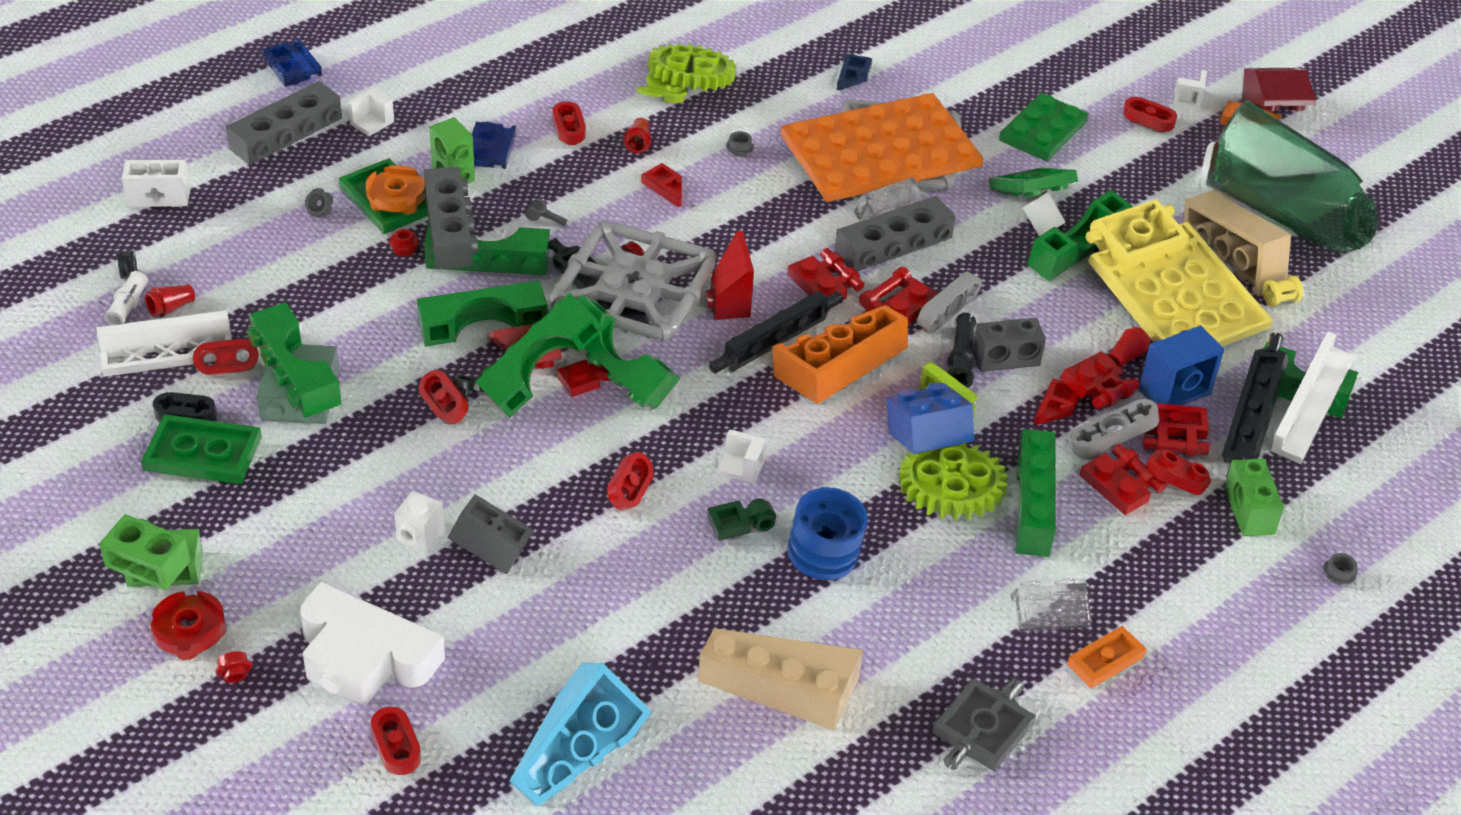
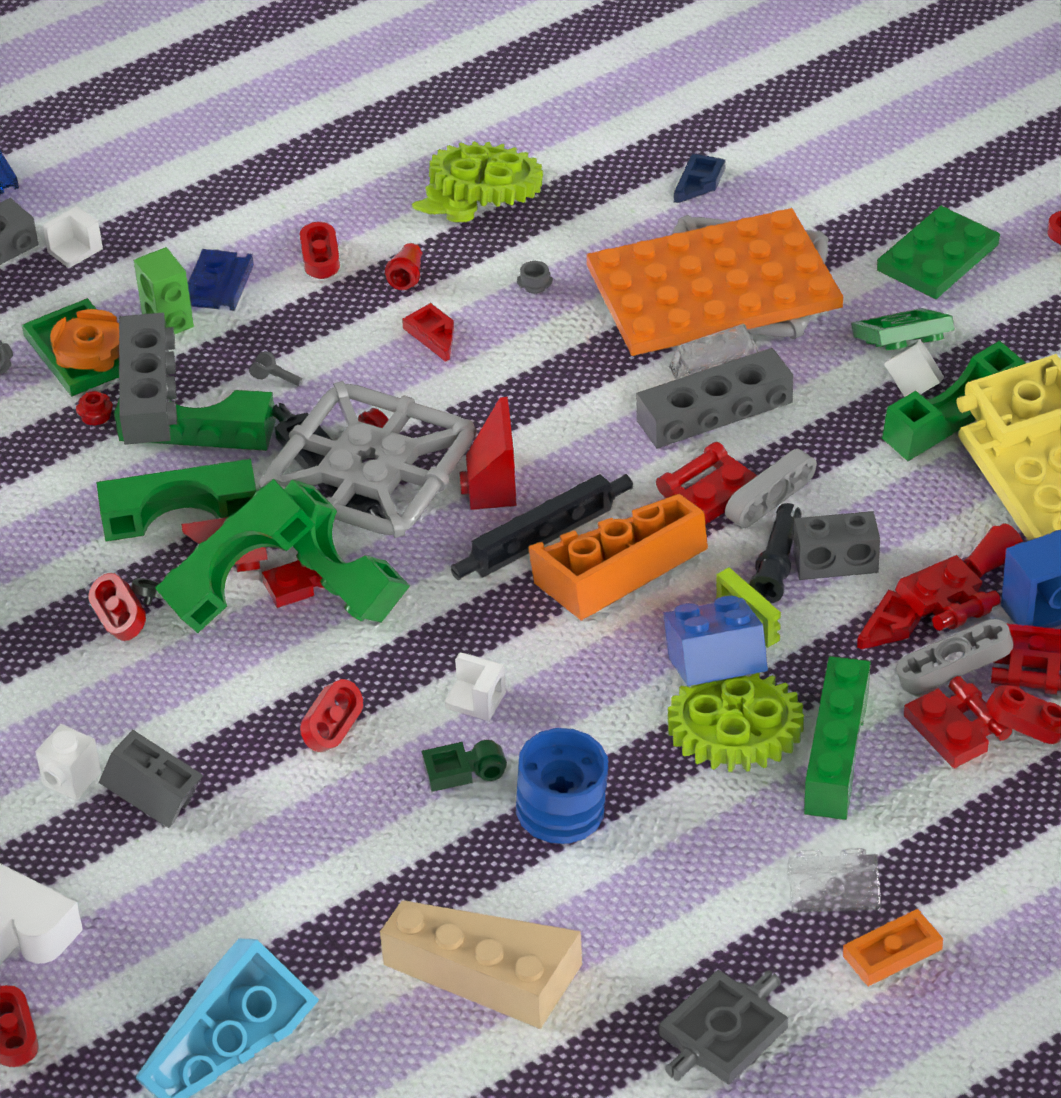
camera: 10 degrees right, 0 degrees up
(817, 275) = (607, 456): red plate -> none

